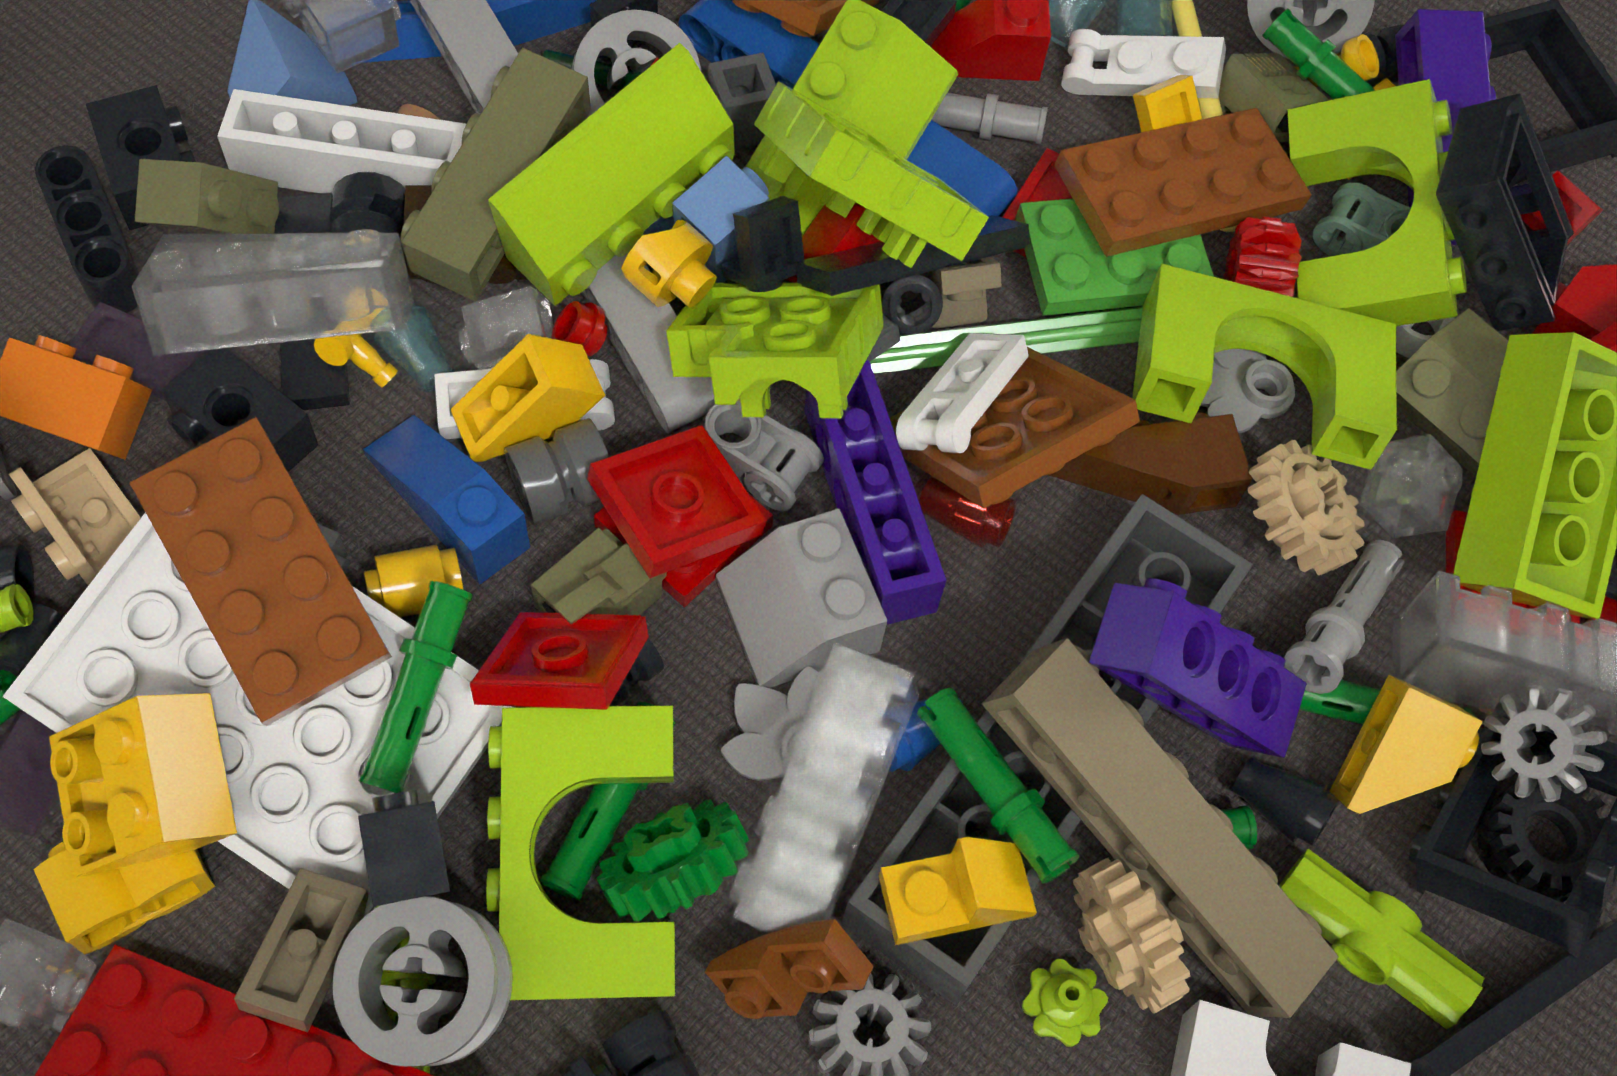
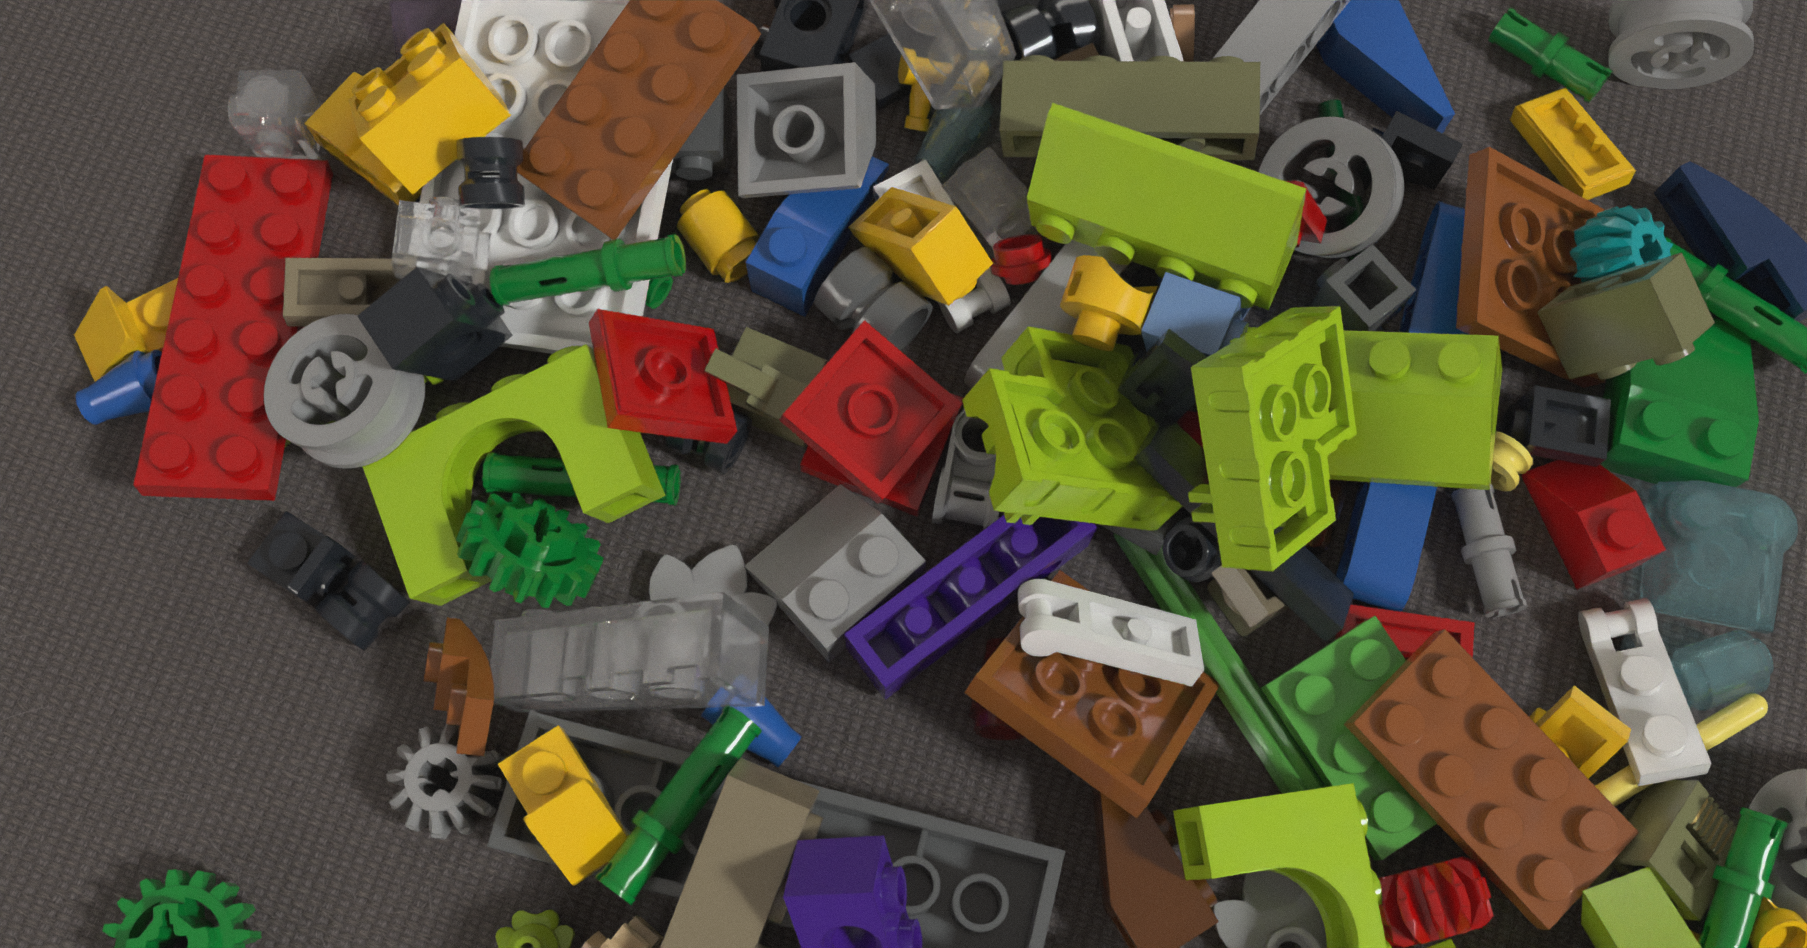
camera: 75 degrees right, 10 degrees up
(252, 725) = (490, 173): none -> black wheel
(306, 824) = (440, 239): none -> clear brick
(361, 453) = (804, 130): none -> light grey slope

